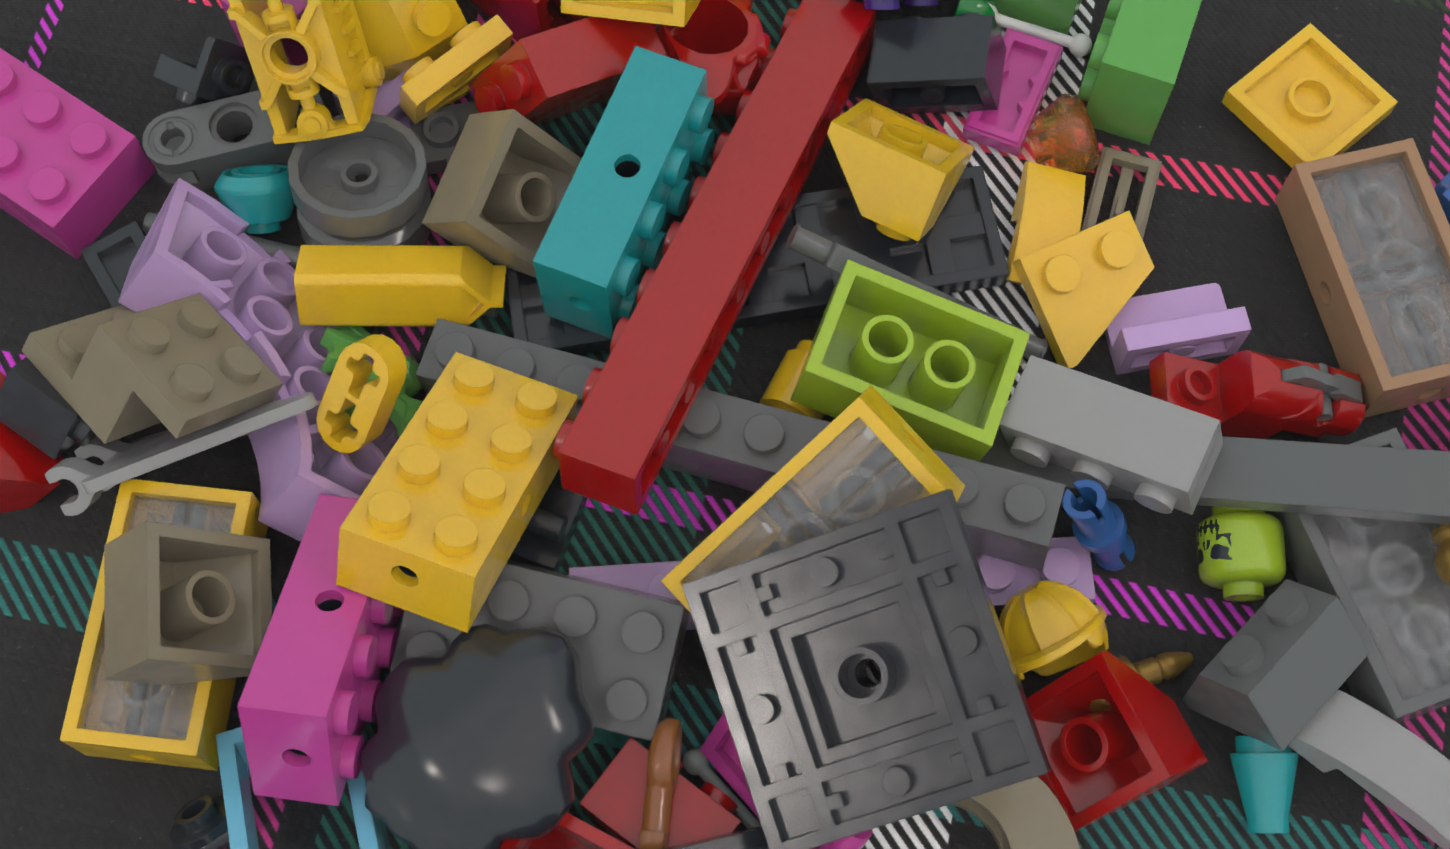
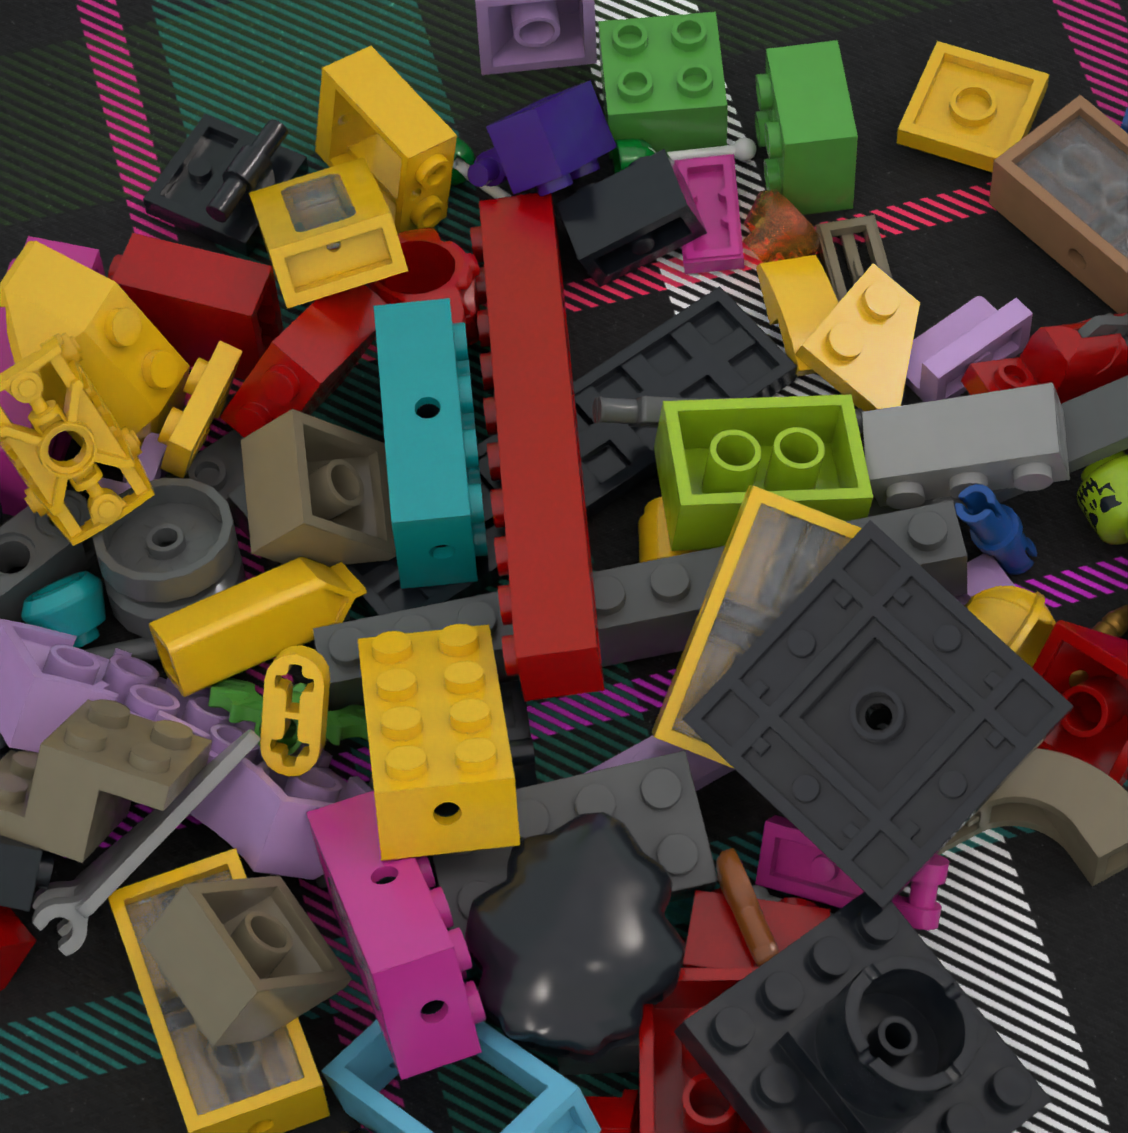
camera: 25 degrees left, 10 degrees down
(897, 167) = (652, 318): yellow slope -> none

